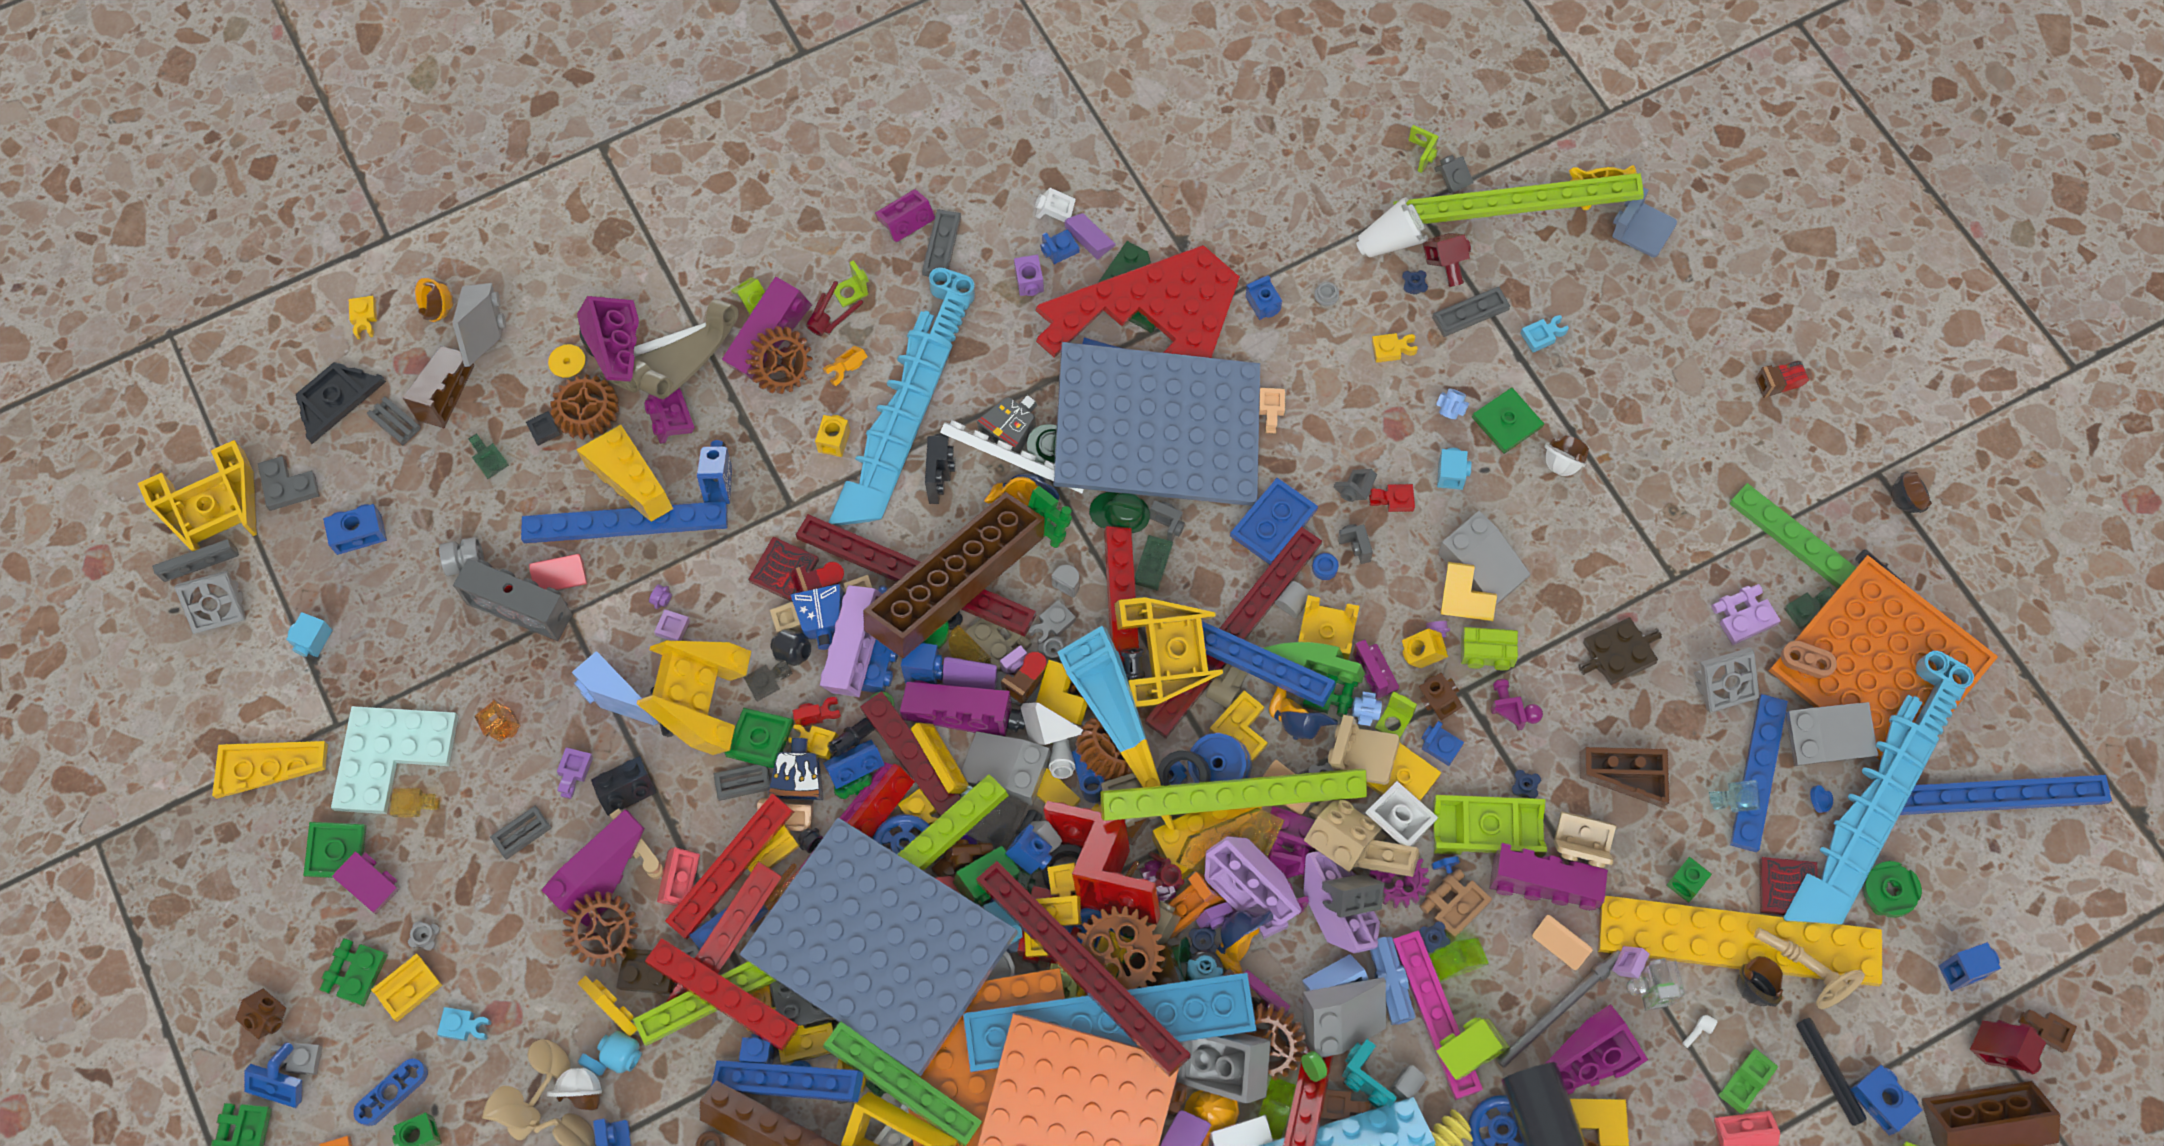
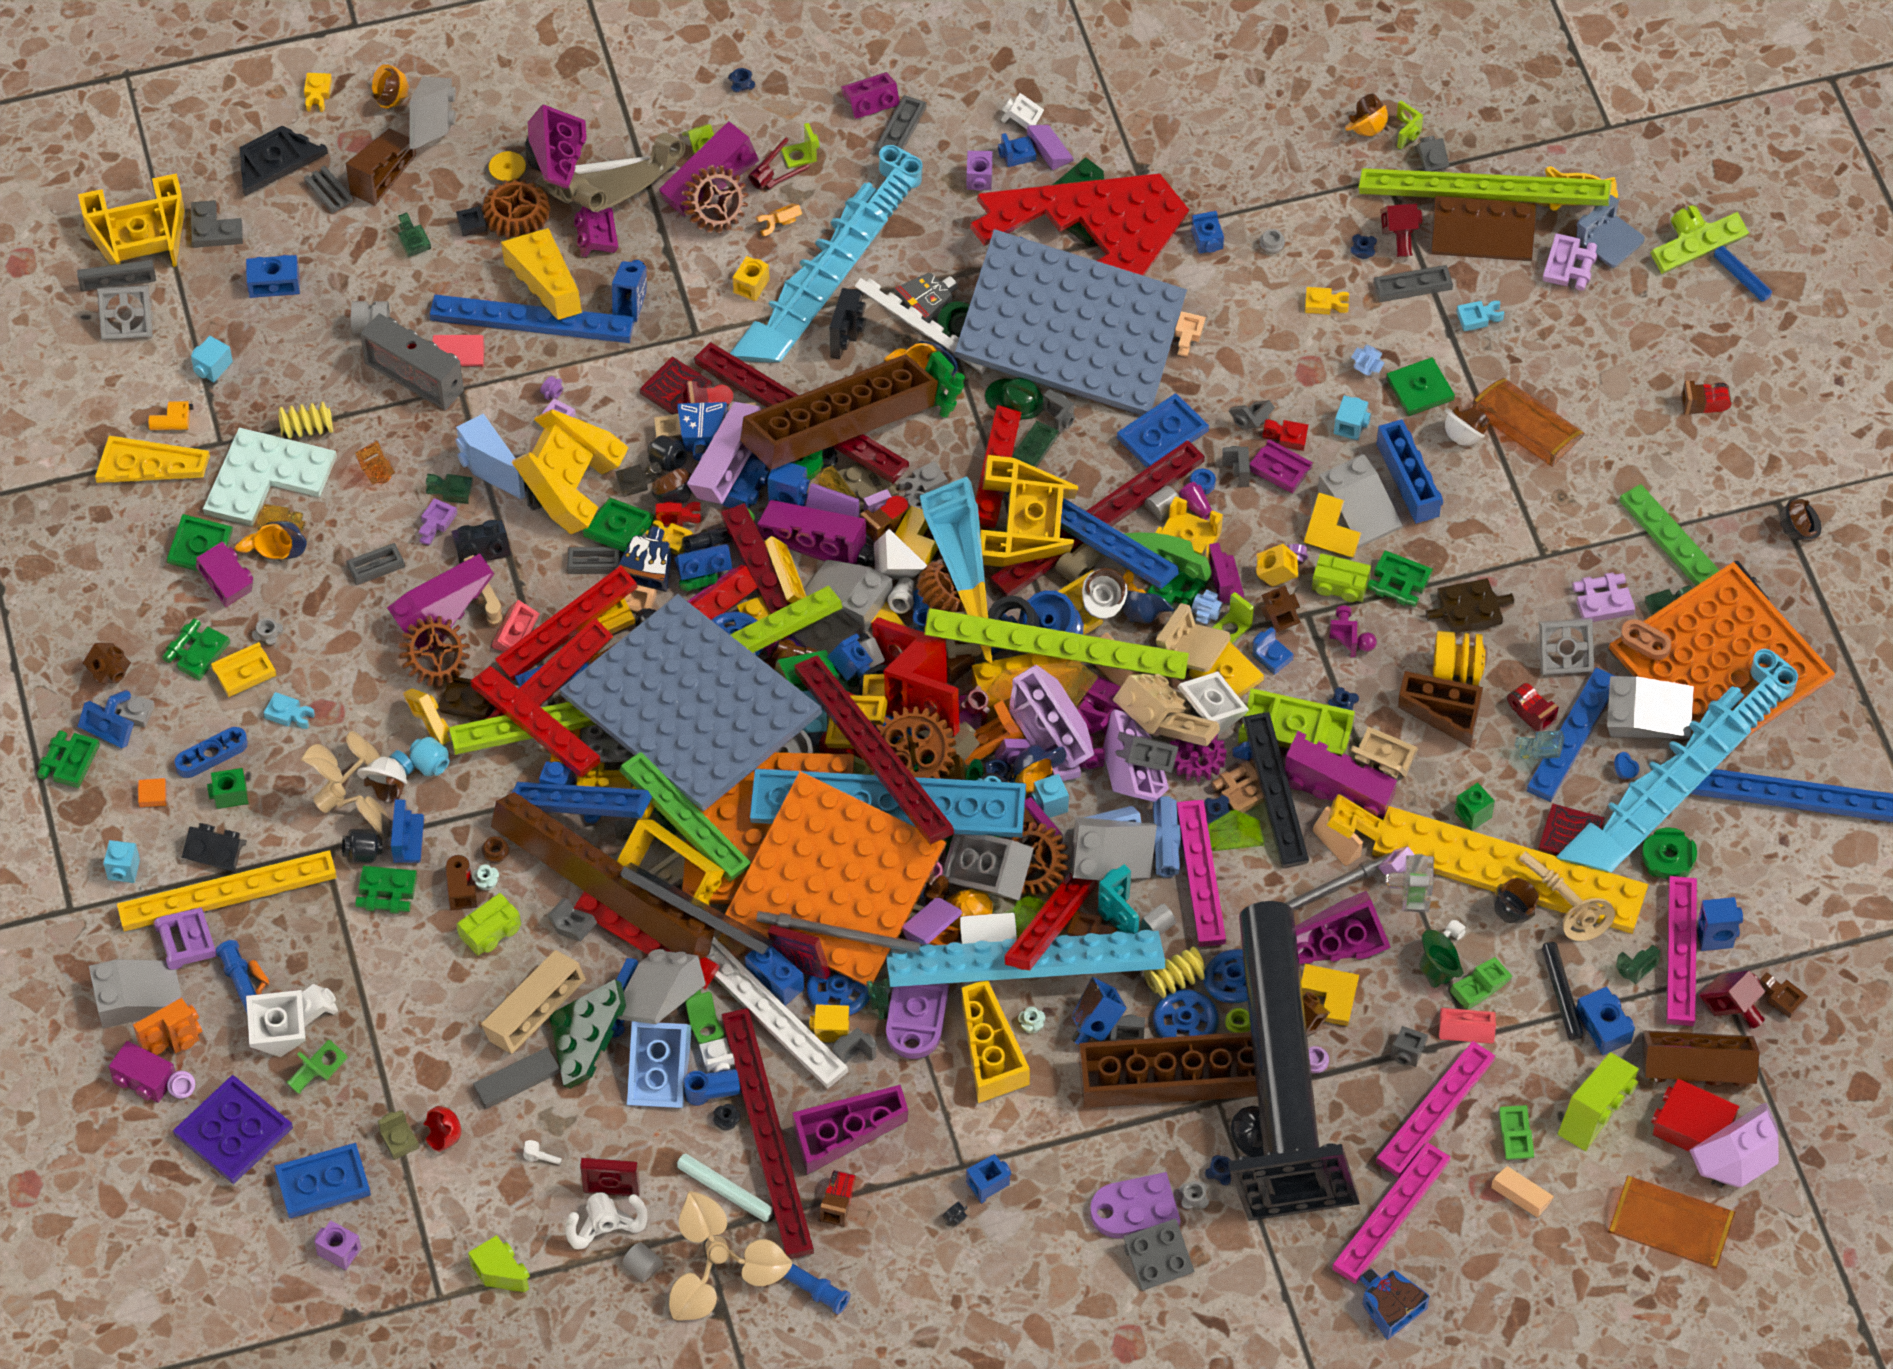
camera: 10 degrees right, 10 degrees down
(285, 708) = (176, 419): none -> light orange piece
(411, 831) = (275, 541): none -> light orange hair
(418, 686) = (305, 419): none -> light yellow piece
(584, 729) = (454, 488): none -> clear green plate
(777, 218) = (741, 80): none -> dark blue plate
(804, 685) = (672, 487): none -> piece
(1066, 580) = (946, 444): light grey brick -> none
(1133, 663) = (989, 517): black bush -> none
(1265, 720) = (1104, 593): none -> white piece
(1265, 960) = (1051, 795): none -> medium azure brick
(1314, 1066) = (1070, 882): bright green tile -> none
(1325, 589) = (1196, 500): none -> magenta cone
(1385, 147) = (1369, 116): none -> piece
(1393, 231) = (1353, 192): white cone -> none
(1397, 535) = (1280, 466): none -> magenta plate
(1472, 1048) = (1222, 896): lime brick -> none
(1489, 905) = (1275, 790): none -> black tile
(1524, 241) = (1483, 228): none -> reddish brown slope
(1525, 518) = (1409, 471): none -> blue brick
(1546, 628) = (1403, 573): none -> green plate
(1572, 922) = (1348, 816): none -> yellow tile
(1607, 260) = (1562, 259): none -> lavender plate
(1620, 437) = (1527, 421): none -> clear orange slope
(1630, 719) = (1458, 659): none -> yellow wheel
(1703, 1067) = (1440, 959): none -> dark green piece
(1712, 752) = (1532, 707): none -> dark red leg
(1725, 211) = (1697, 238): none -> lime plate
(1777, 239) = (1742, 273): none -> blue axle
(1901, 1025) = (1640, 966): none -> clear green bracket
(1936, 1000) = (1681, 951): none -> dark pink plate

